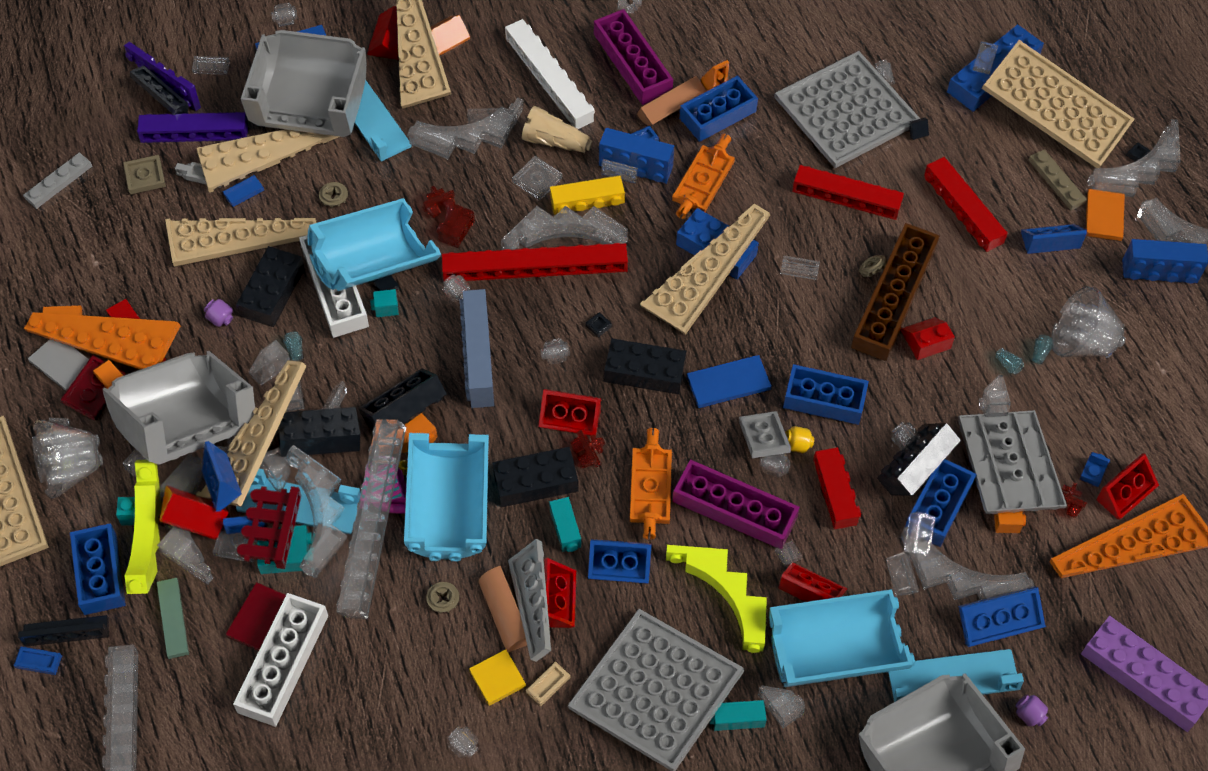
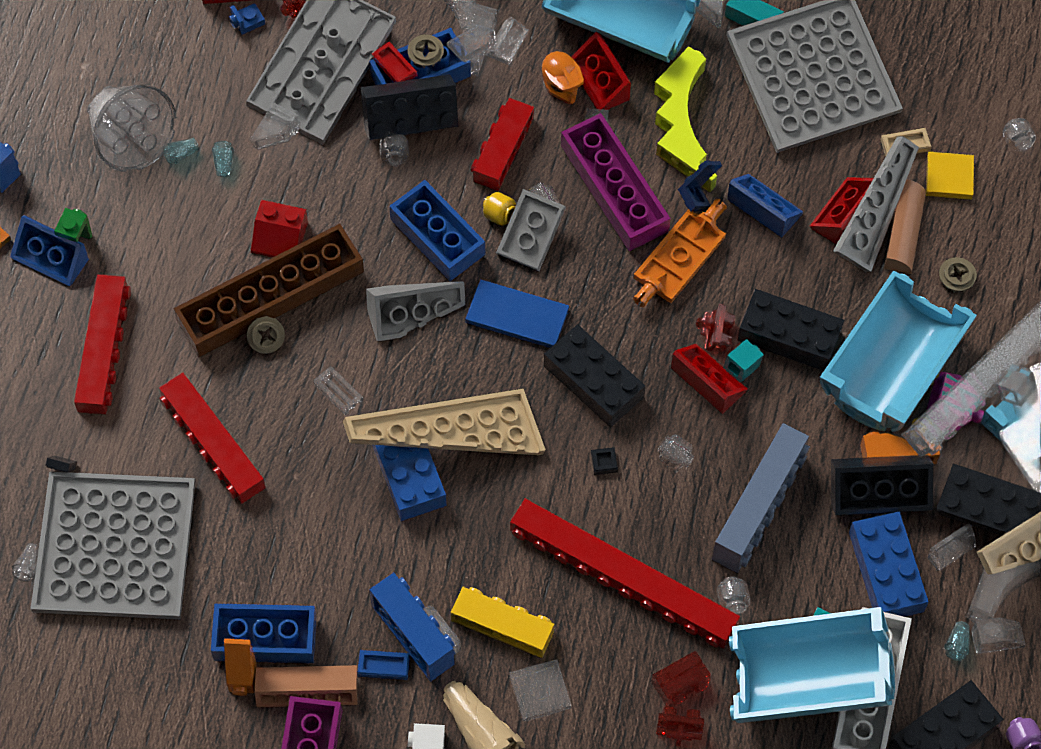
camera: 145 degrees left, 5 degrees up
(345, 512) = (1016, 385): none -> clear brick
(366, 359) = (888, 565): none -> blue brick
(542, 226) = (585, 615): clear arch -> none
(553, 435) = (743, 360): none -> teal brick
(565, 524) = (792, 267): teal brick -> none
(672, 530) = (691, 189): none -> dark blue bracket
(703, 177) = (354, 559): orange plate -> none
(807, 332) = (404, 307): none -> light grey wedge
(838, 560) = (564, 74): none -> orange helmet
(944, 493) = (417, 46): none -> dark tan gear
(956, 479) = (393, 63): none -> red tile
(1052, 247) = (73, 225): none -> green bracket

